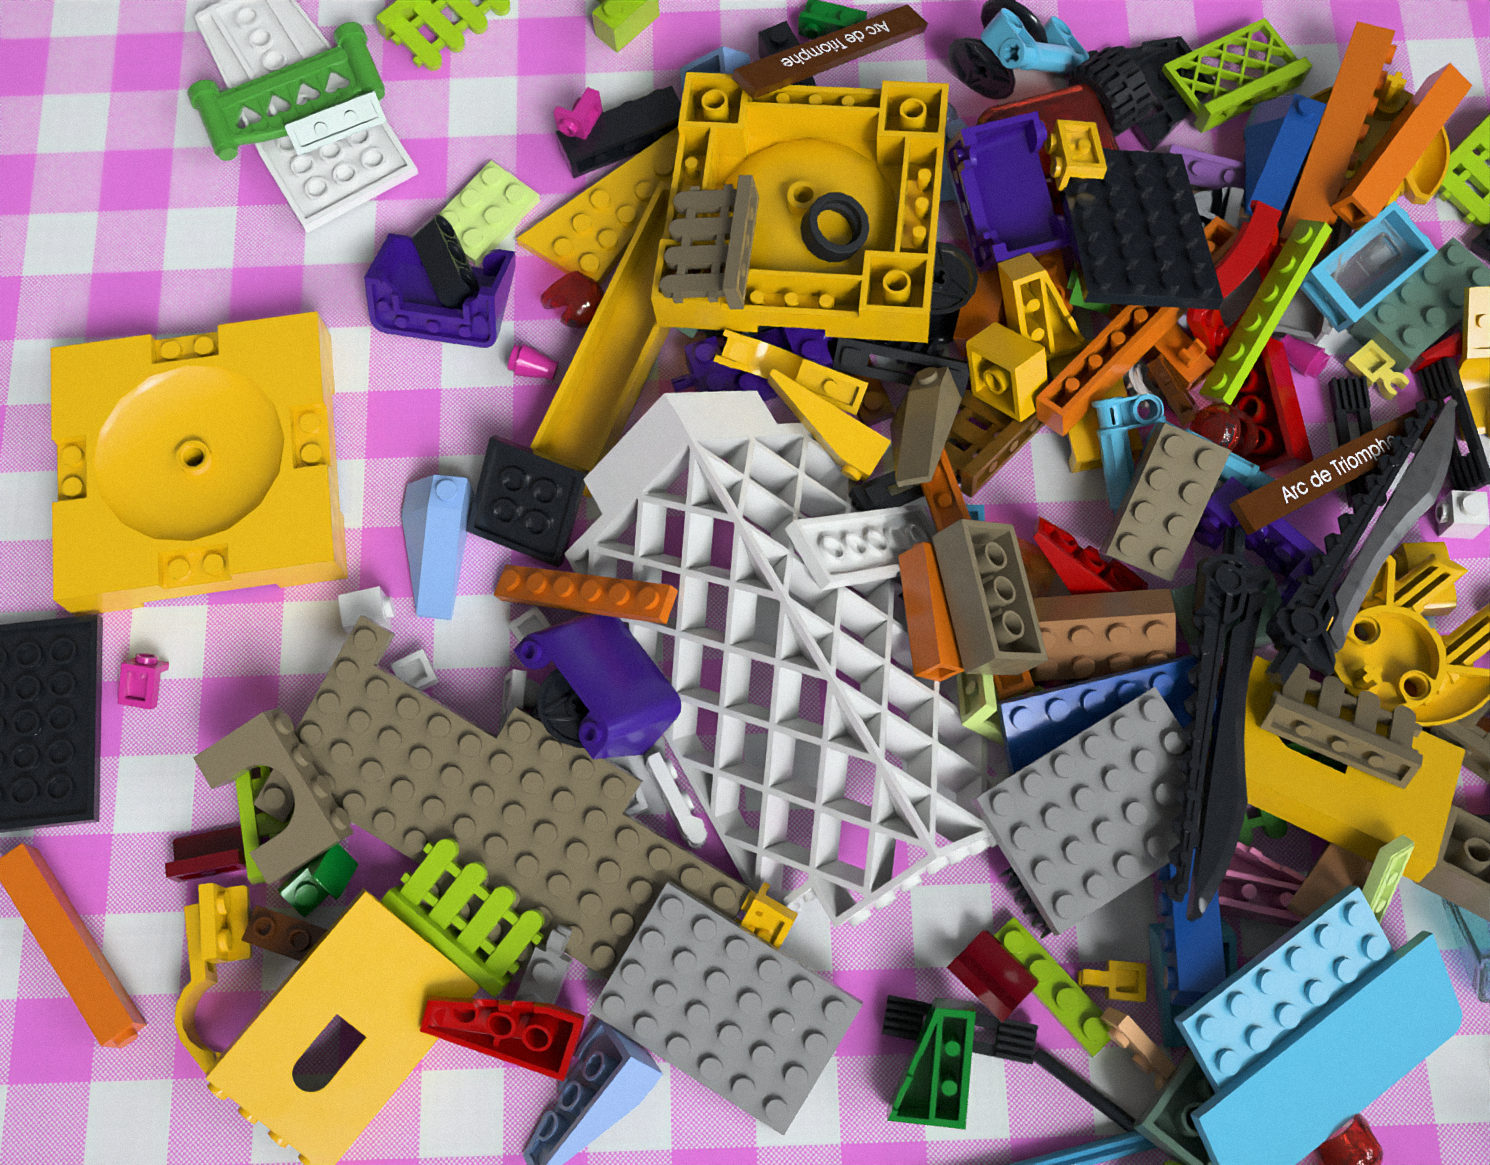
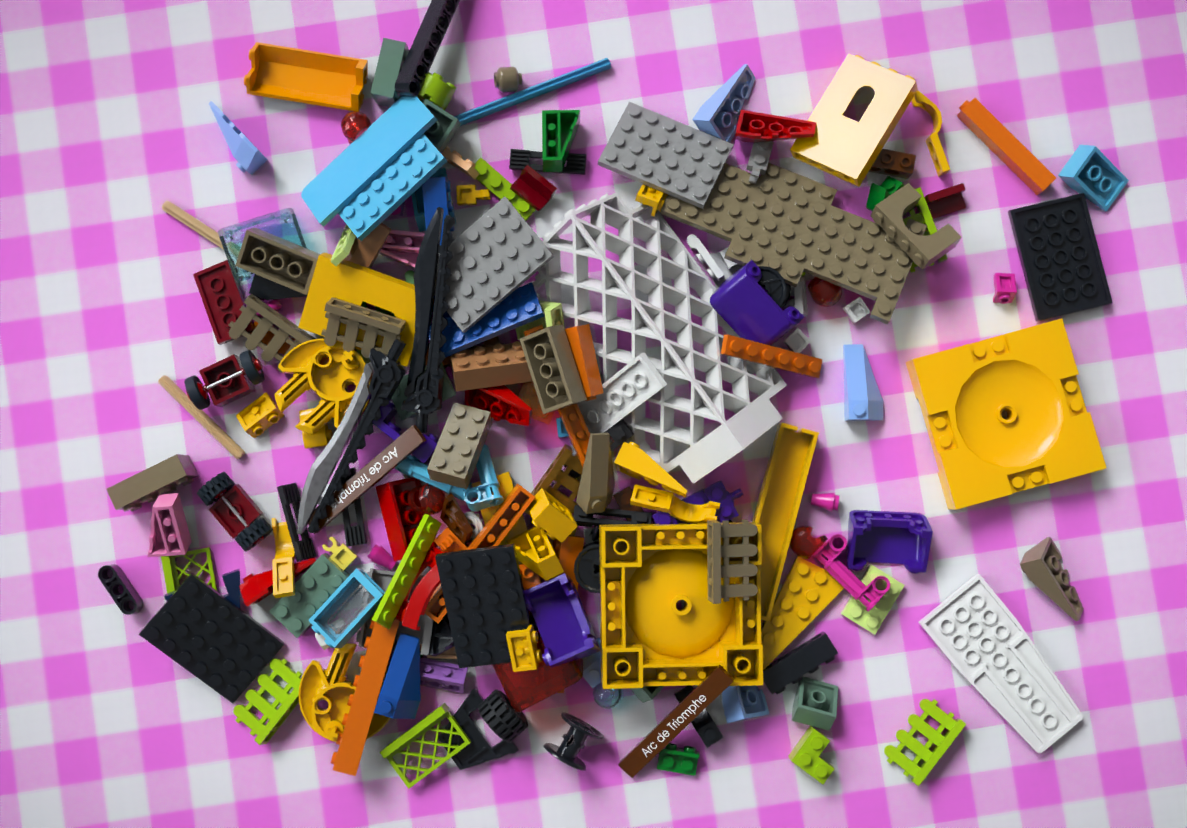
camera: 175 degrees right, 15 degrees up
(193, 216) = (1046, 572): none -> dark tan wedge
(222, 110) = (1047, 648): bright green piece -> none
(223, 923) = (928, 166): yellow bracket -> none
(335, 122) = (974, 643): plate -> none
(366, 602) = (890, 338): white brick -> none
(445, 262) = (888, 557): black beam -> none
(463, 947) = (808, 172): lime fence -> none
(469, 701) = (824, 293): none -> clear red helmet
(491, 208) = (846, 577): none -> dark pink piece
(526, 500) = (813, 410): black plate -> none
(582, 117) = (821, 663): dark pink bracket -> none
(605, 67) = (815, 703): none -> sand green slope
(851, 211) = (645, 583): black tyre -> none
(1018, 49) = (566, 731): medium azure piece -> none
(1083, 1089) = (484, 142): black bar -> none
(1401, 146) = (328, 688): orange brick -> none
(1462, 514) = (294, 467): white brick -> none

